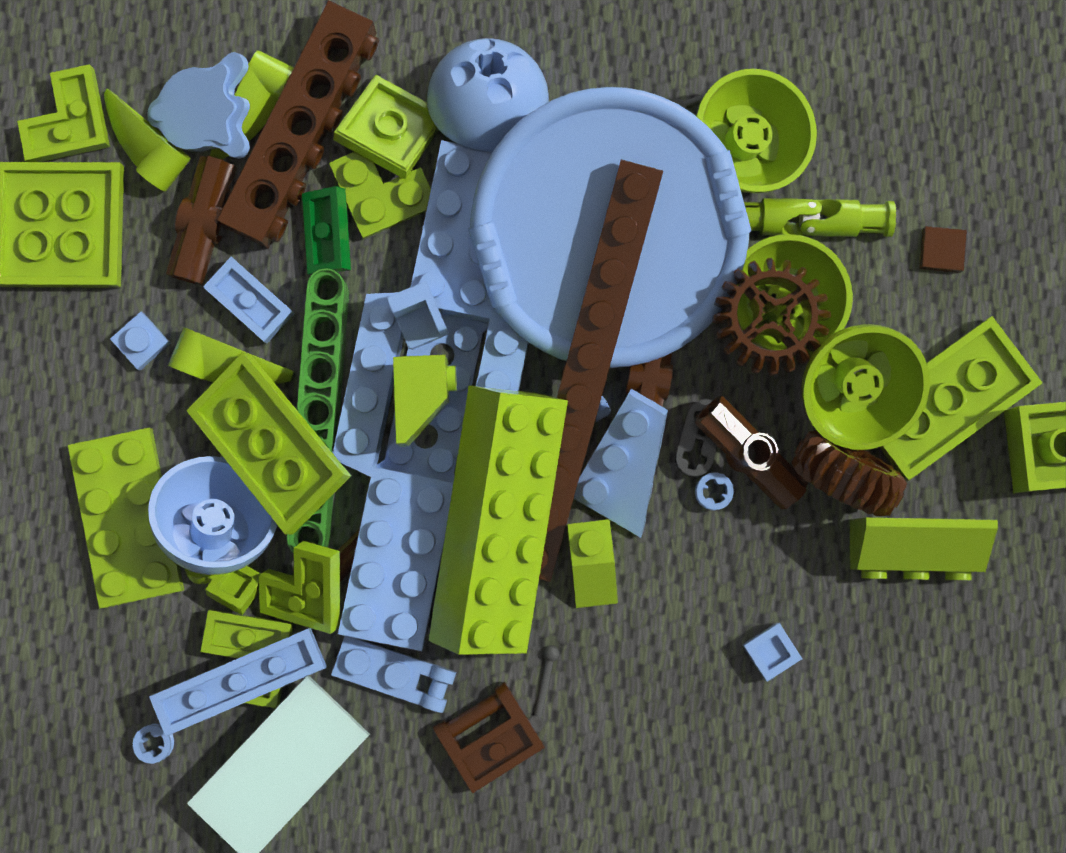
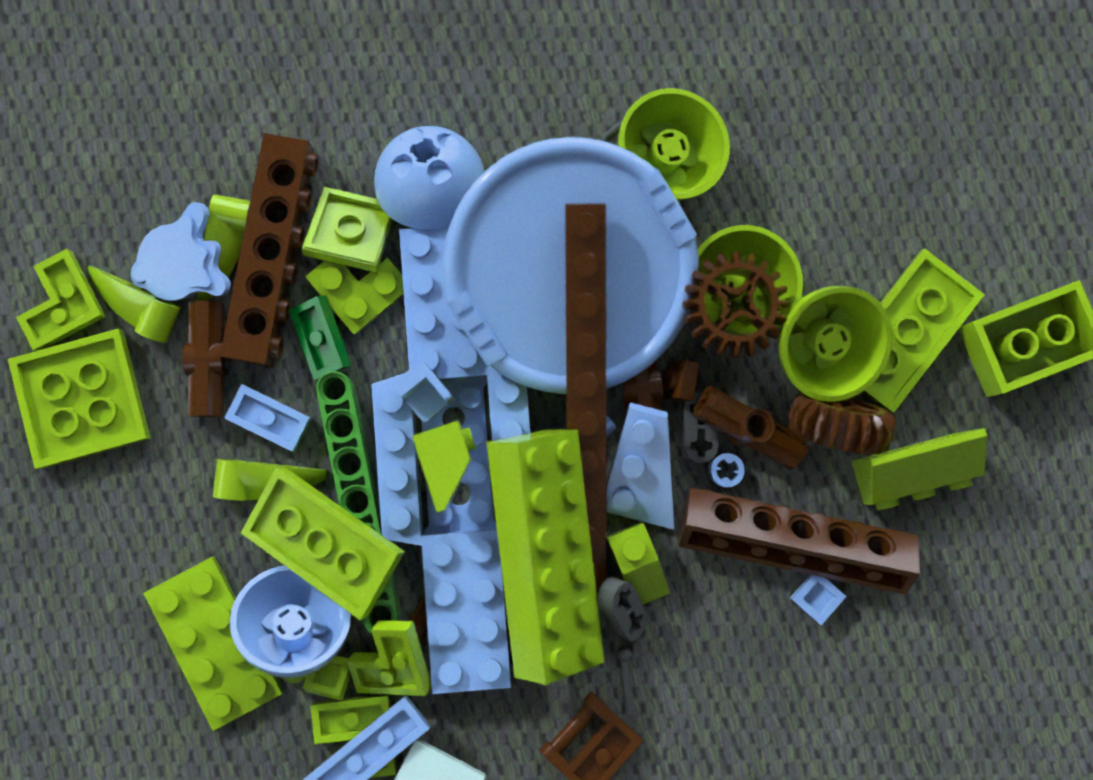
camera: 20 degrees left, 0 degrees up
(140, 341) = (182, 481): light blue plate -> none
(392, 673) = (490, 712): light blue plate -> none
(561, 603) = (622, 608): none -> dark grey beam
(691, 382) = (680, 380): none -> reddish brown plate
(769, 586) = (799, 541): none -> reddish brown brick
(845, 216) = (772, 199): lime piece -> none
(943, 249) = (864, 201): reddish brown tile -> none

